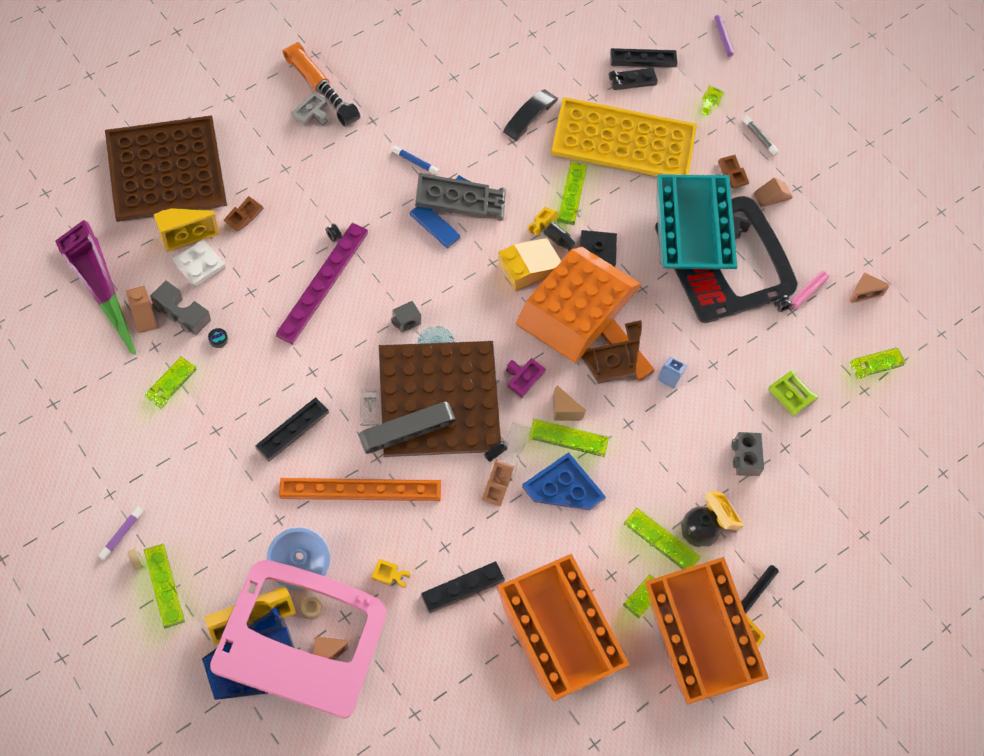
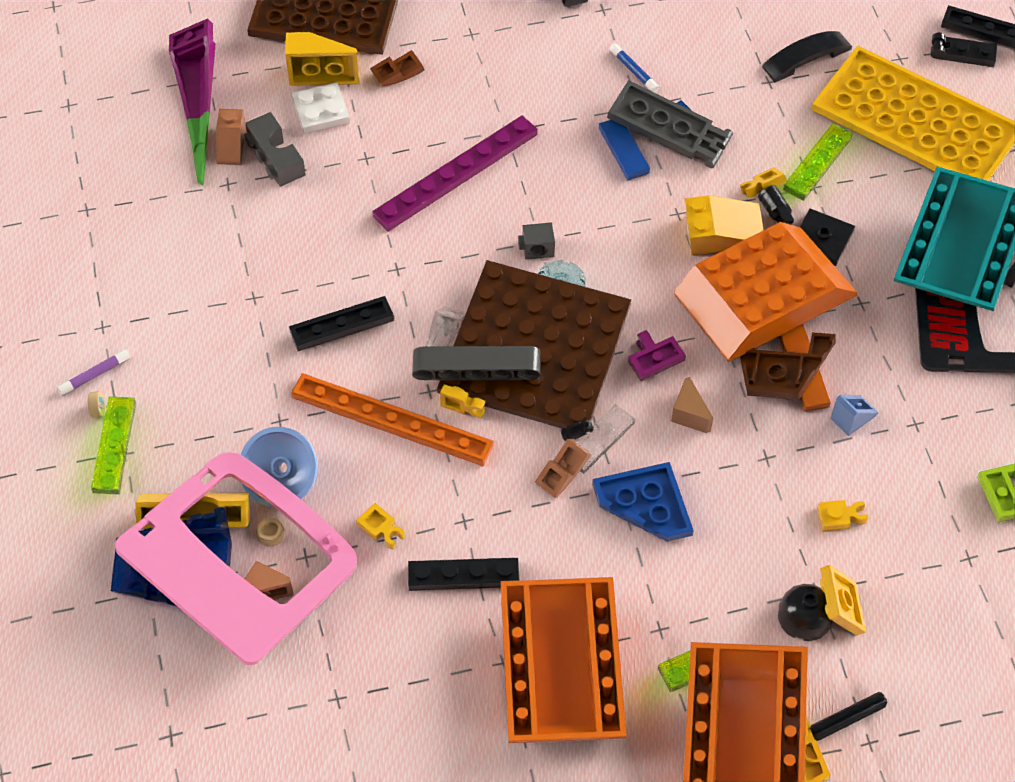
camera: 30 degrees right, 5 degrees down
(170, 382) = (226, 226): clear neon green plate -> none
(218, 337) = (303, 196): black tile -> none
(333, 232) = (493, 119): black bush -> none
(401, 458) = (458, 401): none -> yellow plate
(568, 437) = (679, 446): clear neon green plate -> none
(661, 539) = (742, 604): clear neon green plate -> none
(693, 449) = (837, 516): none -> yellow plate
(752, 454) = (914, 546): dark grey brick -> none

